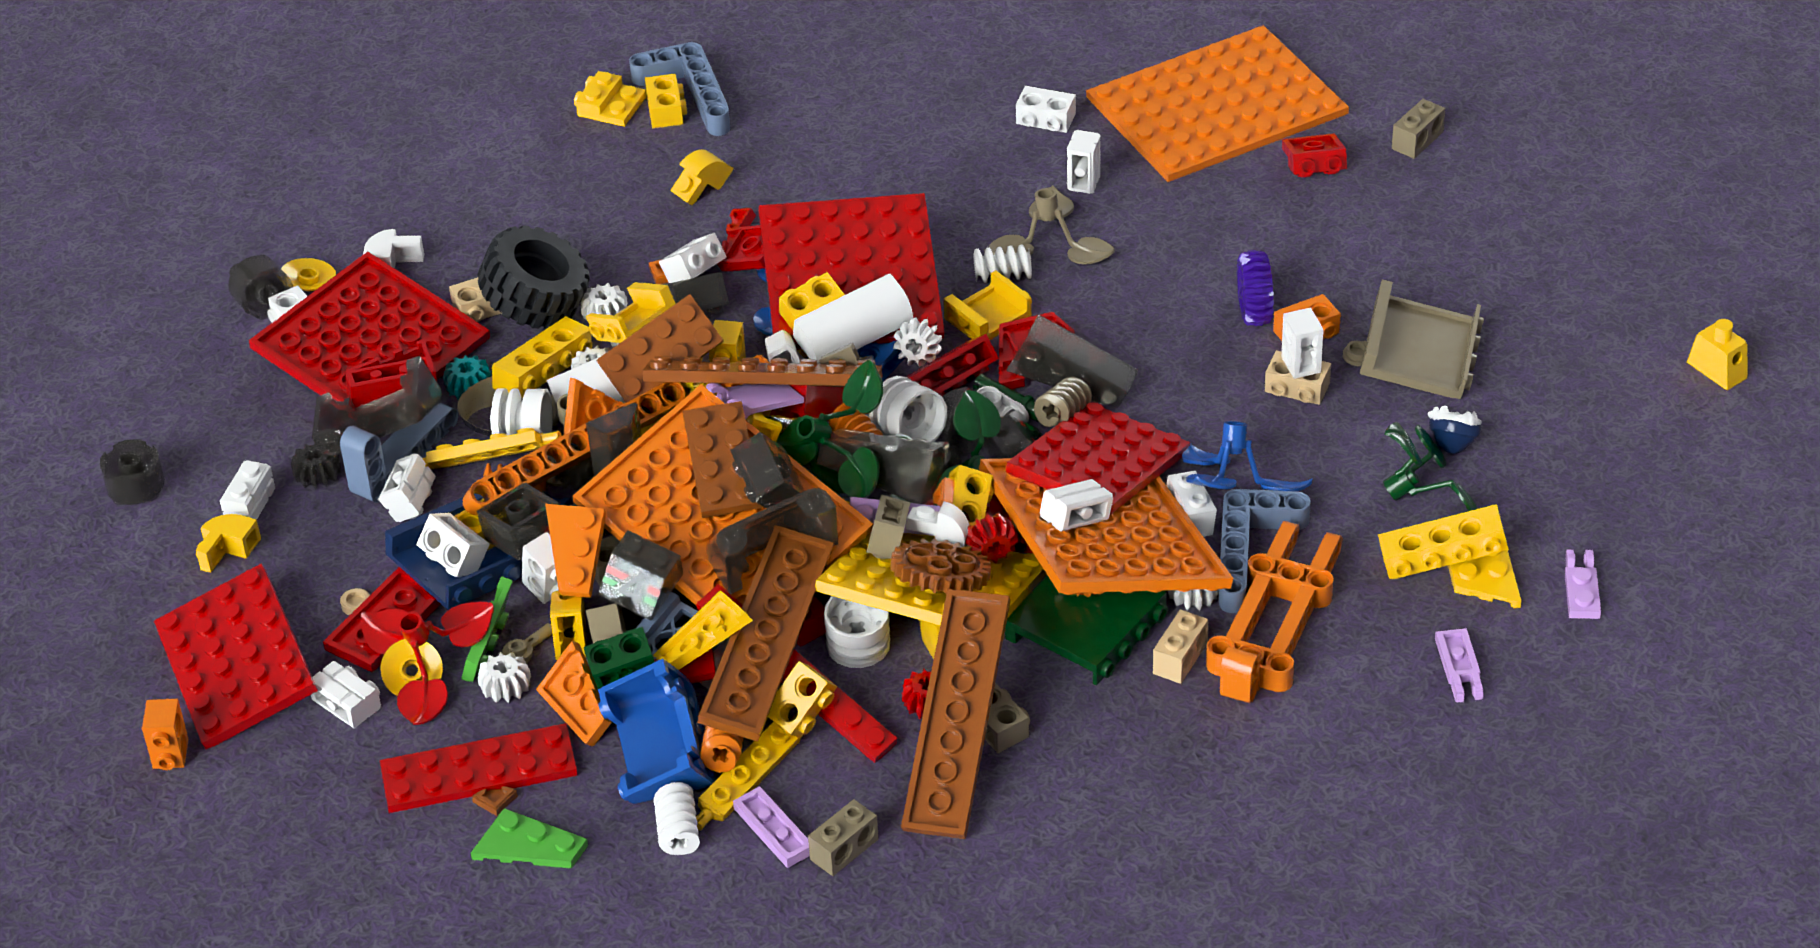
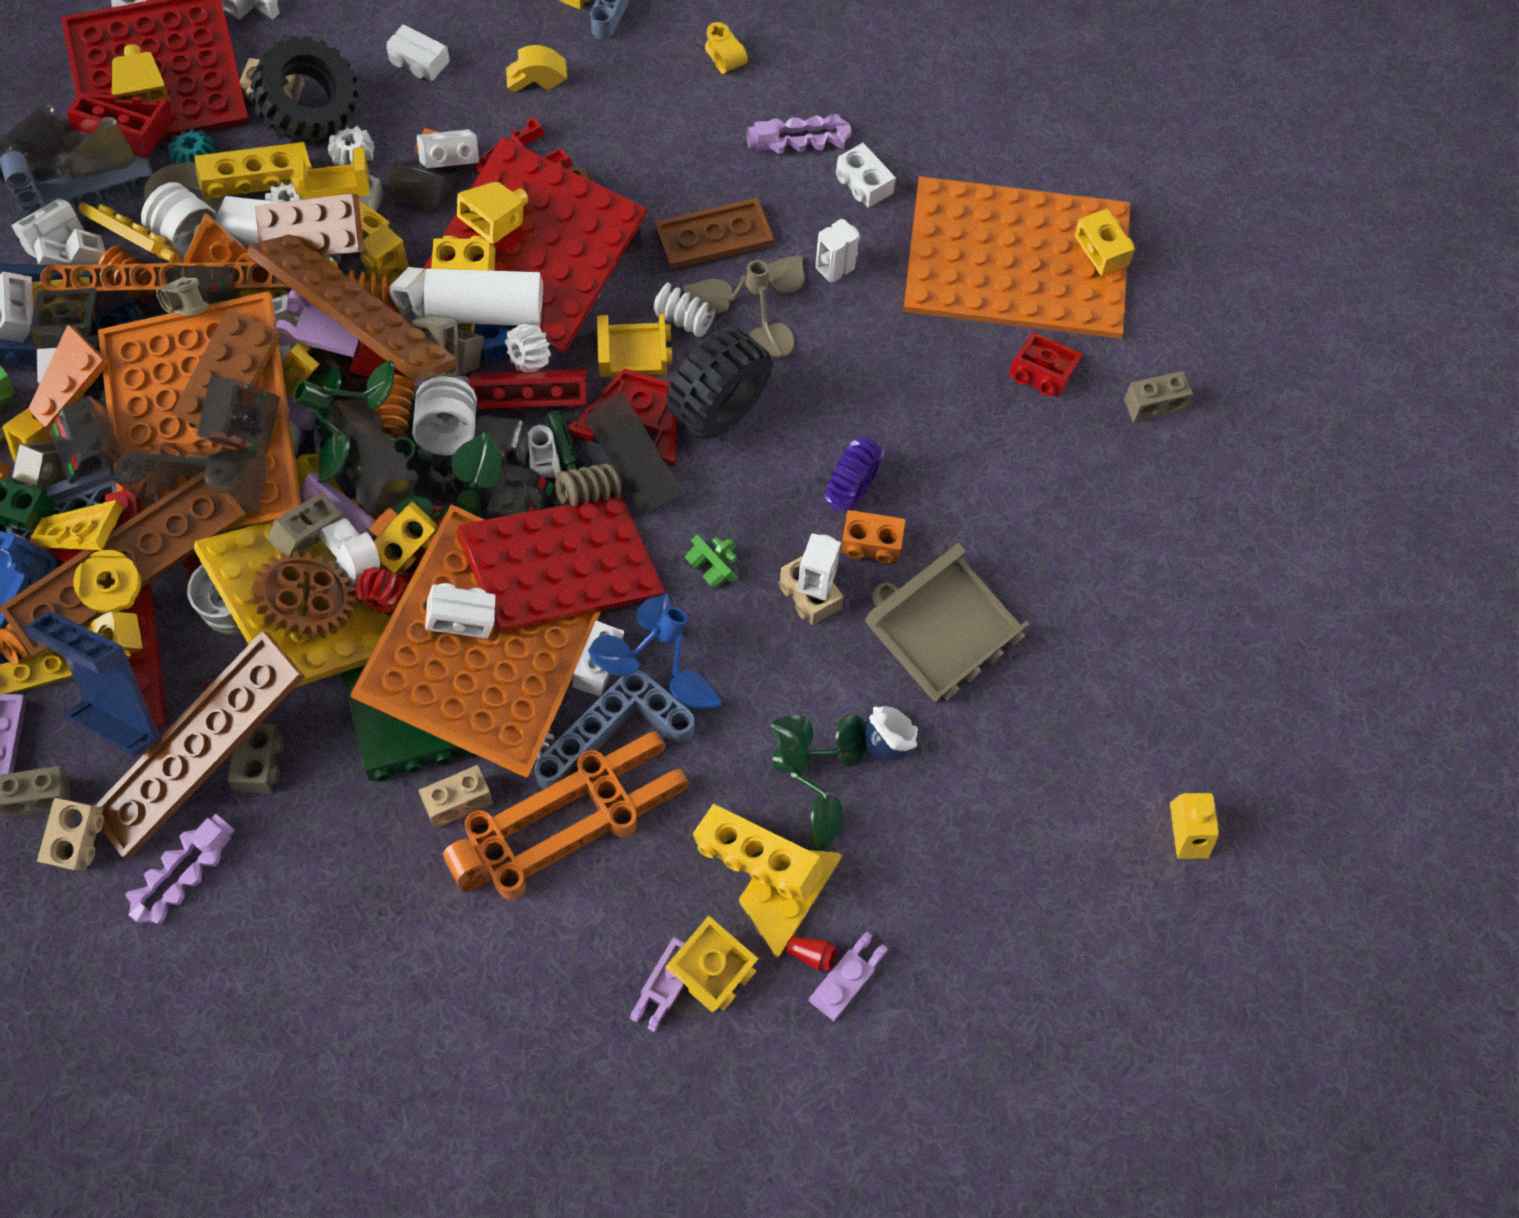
camera: 30 degrees right, 20 degrees up
(372, 339) = (137, 76): none -> yellow torso
(451, 486) = (80, 249): none -> white brick
(585, 215) = (417, 53): none -> white brick
(636, 421) = (182, 297): none -> dark tan piece
(770, 658) = (119, 595): none -> yellow plate
(808, 251) = (492, 210): none -> yellow torso
(840, 87) = (724, 48): none -> yellow piece
(841, 709) = (110, 693): none -> dark blue panel
(903, 841) = (62, 831): none -> tan brick
(939, 124) = (765, 134): none -> lavender sword
(970, 206) = (713, 233): none -> dark orange plate
(1019, 787) = (210, 839): none -> lavender sword
(1098, 277) = (719, 382): none -> black tyre
(1205, 397) = (719, 572): none -> bright green hips
(1278, 52) = (1104, 242): none -> yellow brick
(1485, 626) = (712, 965): none -> yellow plate
(1544, 583) = (813, 952): none -> red cone

